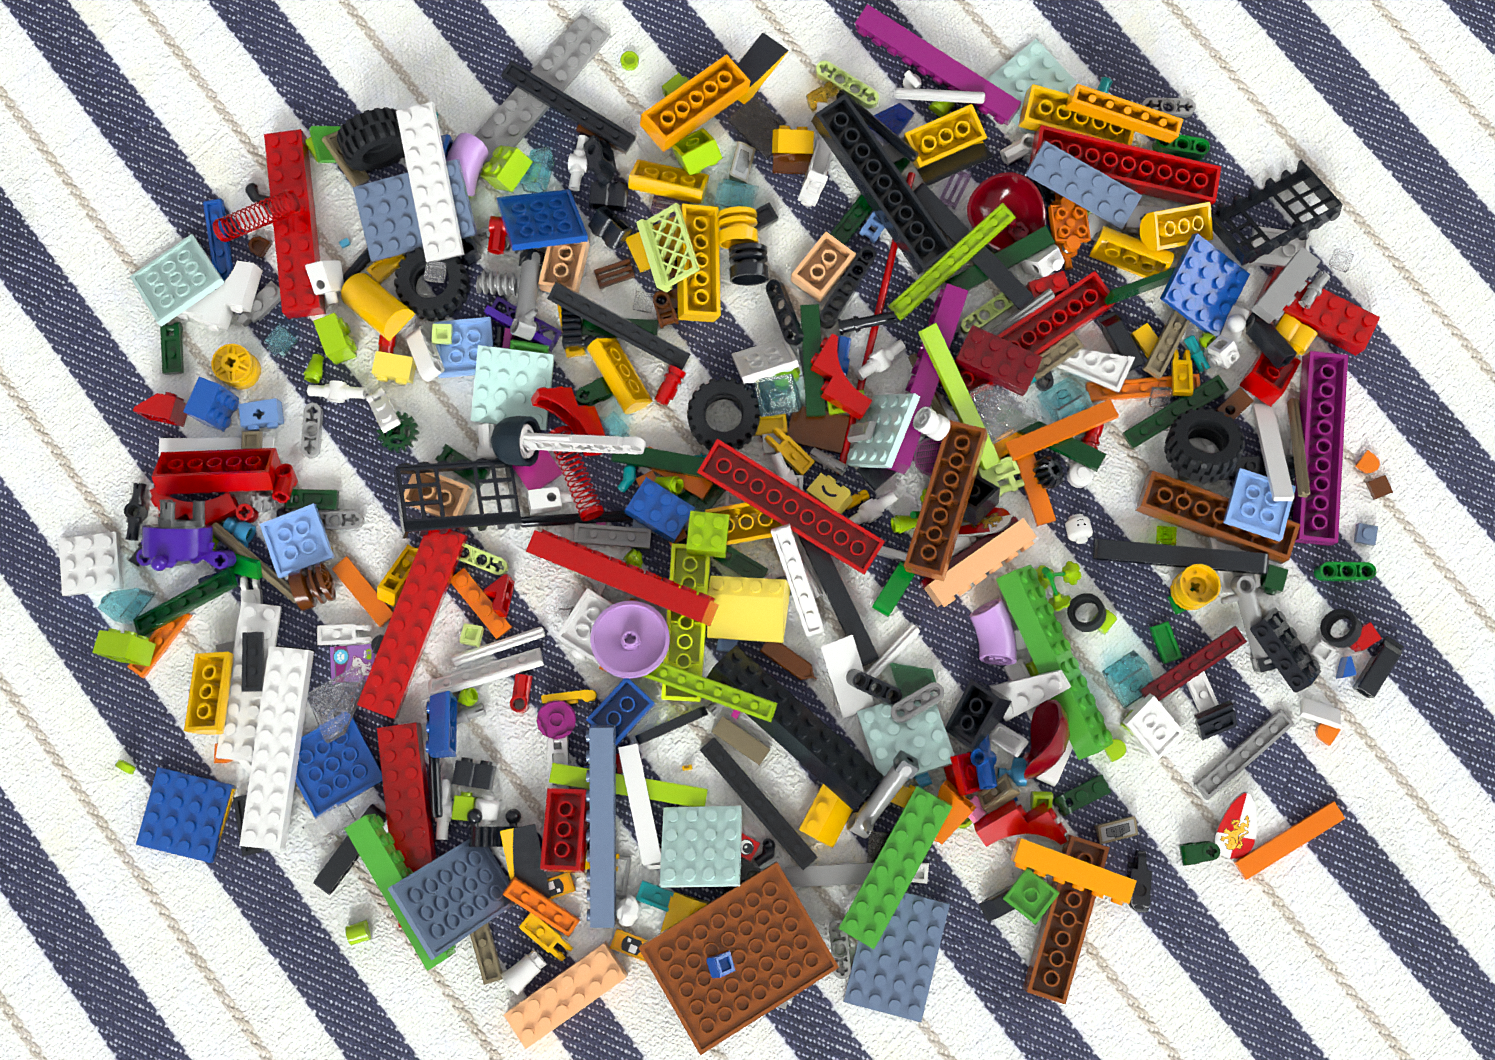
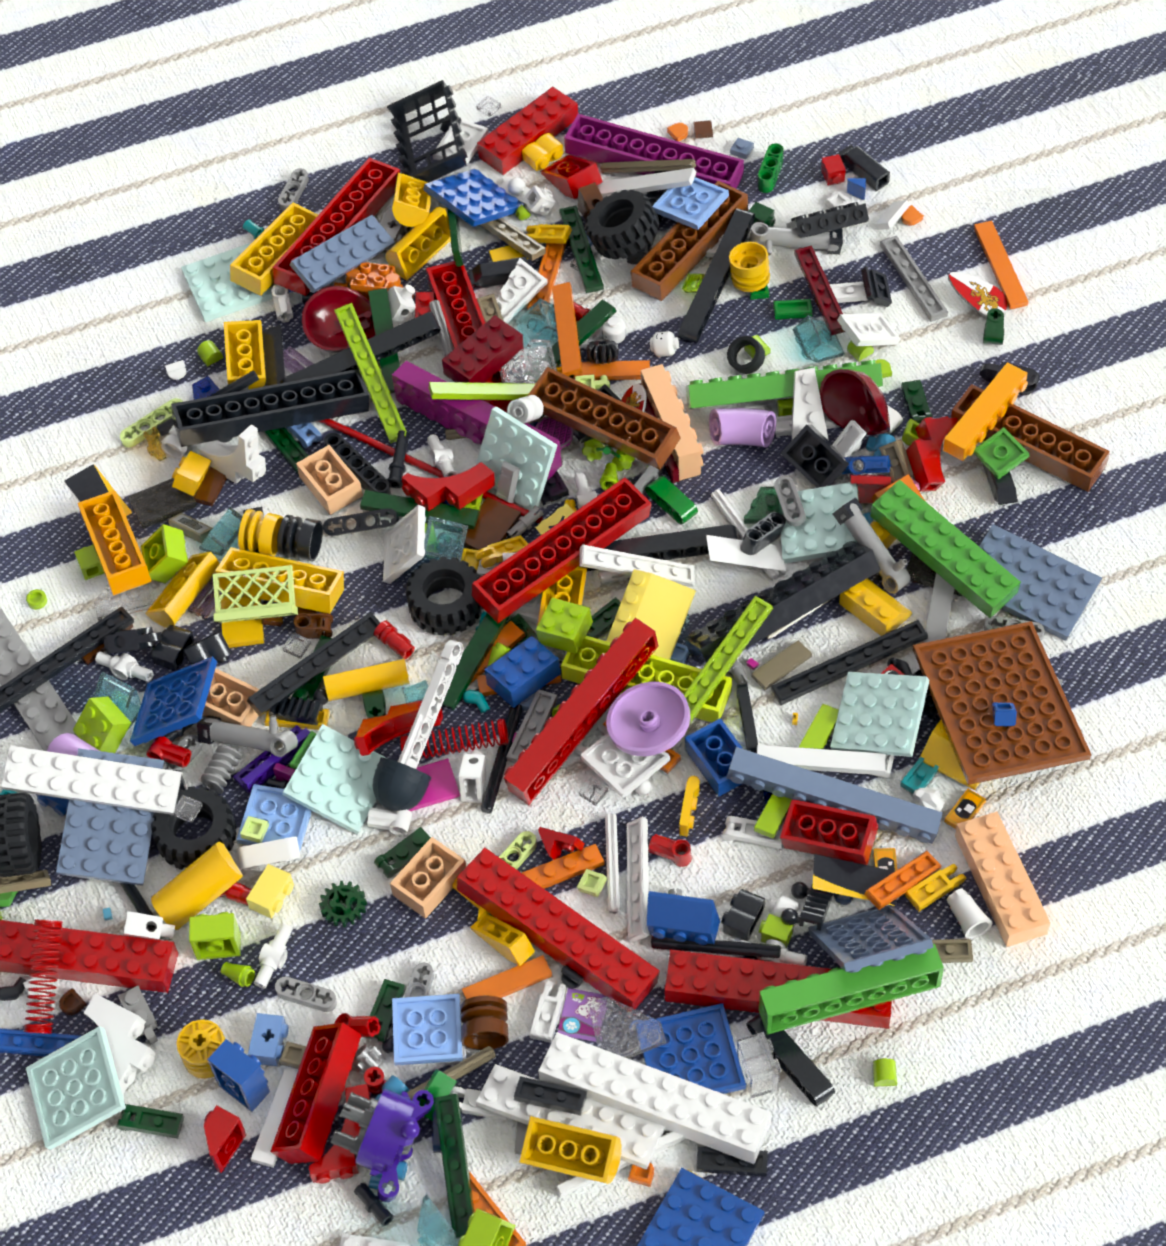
camera: 70 degrees left, 25 degrees down
(136, 501) = (338, 1207): black pin -> none
(280, 341) = (191, 1000): clear light blue brick -> none
(383, 410) = (314, 908): white plate -> none
(384, 268) = (153, 877): yellow tile -> none
(461, 522) = (453, 886): black window -> none
(556, 719) = (709, 816): magenta tile -> none
(614, 273) = (256, 650): reddish brown tile -> none
(788, 660) = (713, 602): reddish brown piece -> none
(935, 63) = (169, 343): magenta brick -> none
(940, 95) = (202, 346): white axle -> none
(990, 308) = (431, 361): yellowish green beam -> none
(1070, 574) = (703, 362): lime plant -> none
(1116, 829) = (955, 383): slope -> none
(1124, 113) = (289, 206): light orange brick -> none
(1160, 396) = (562, 256): clear tile -> none
(1188, 142) = (333, 184): green beam -> none
(1196, 353) = (522, 223): teal axle -> none
(1269, 341) = (542, 165): black piece -> none
(1285, 285) = (499, 136): light grey brick -> none
(1314, 289) = (511, 119): light grey pin -> none
(1331, 618) = (808, 179): black tyre -> none

